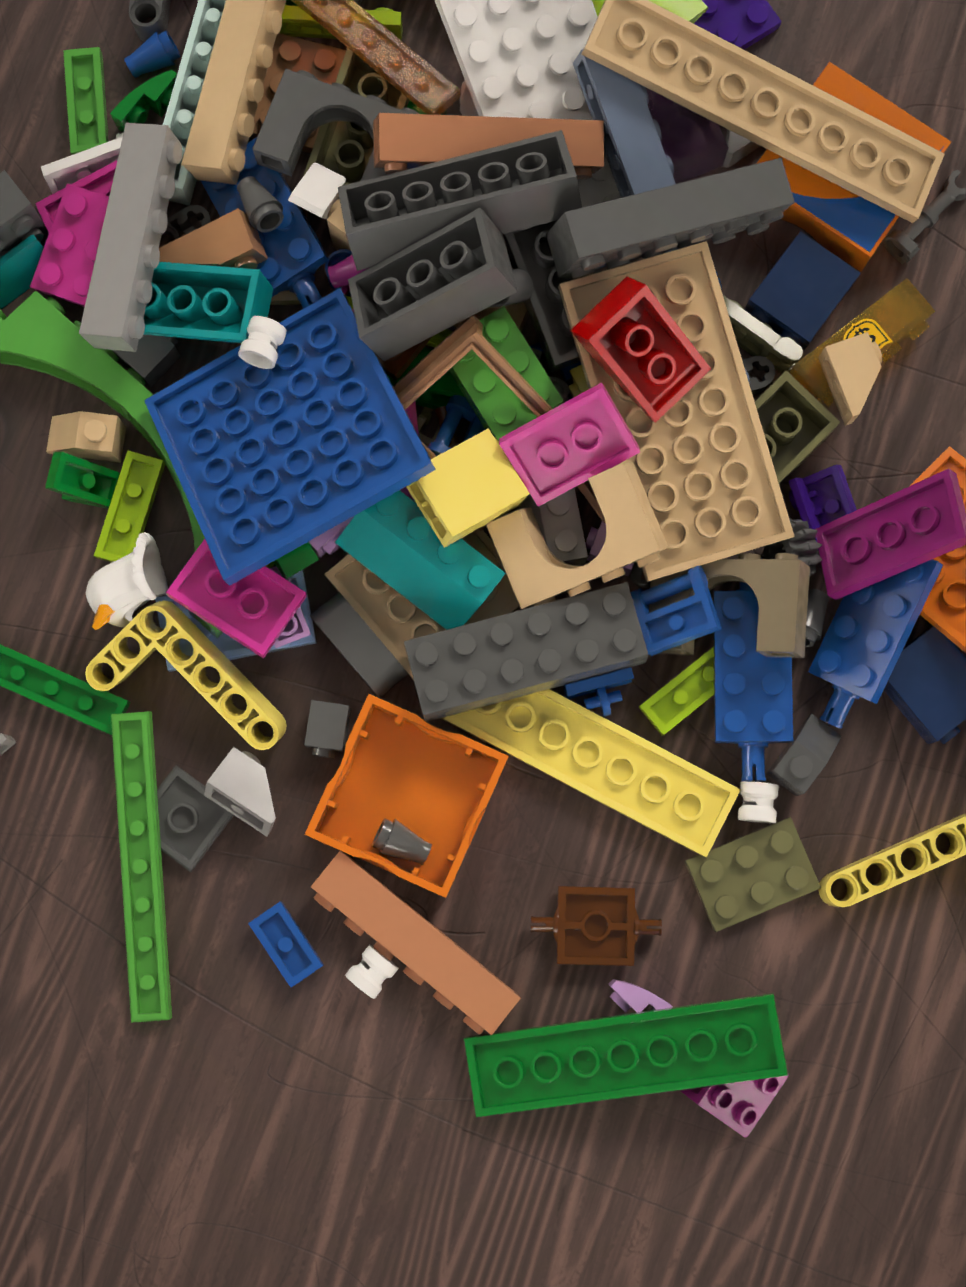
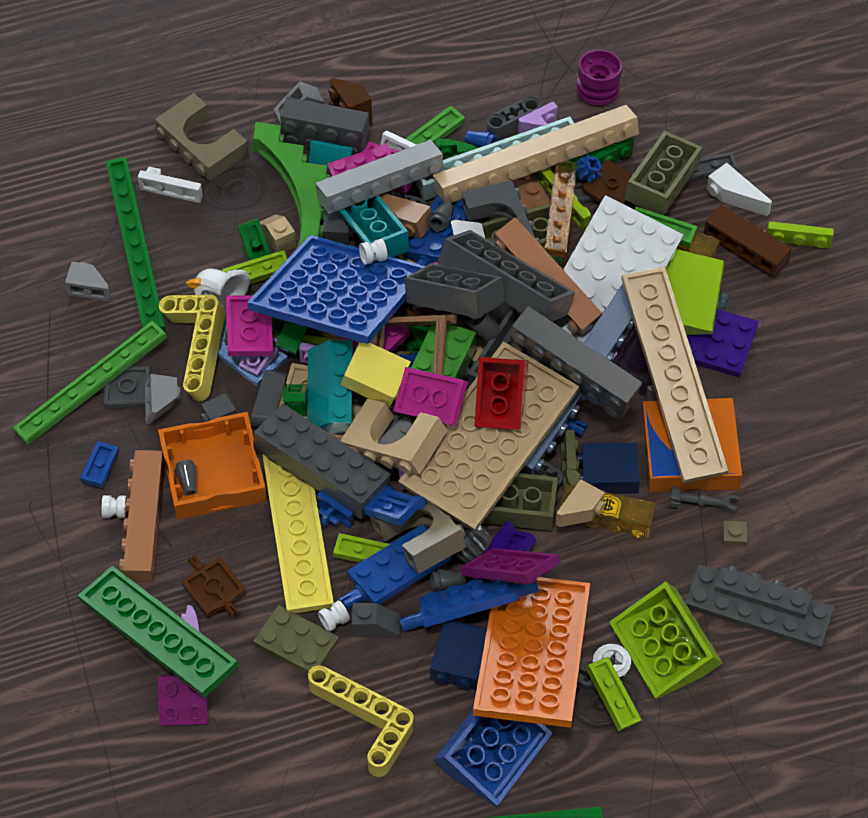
camera: 55 degrees right, 25 degrees down
(390, 610) = (295, 397): none -> green slope

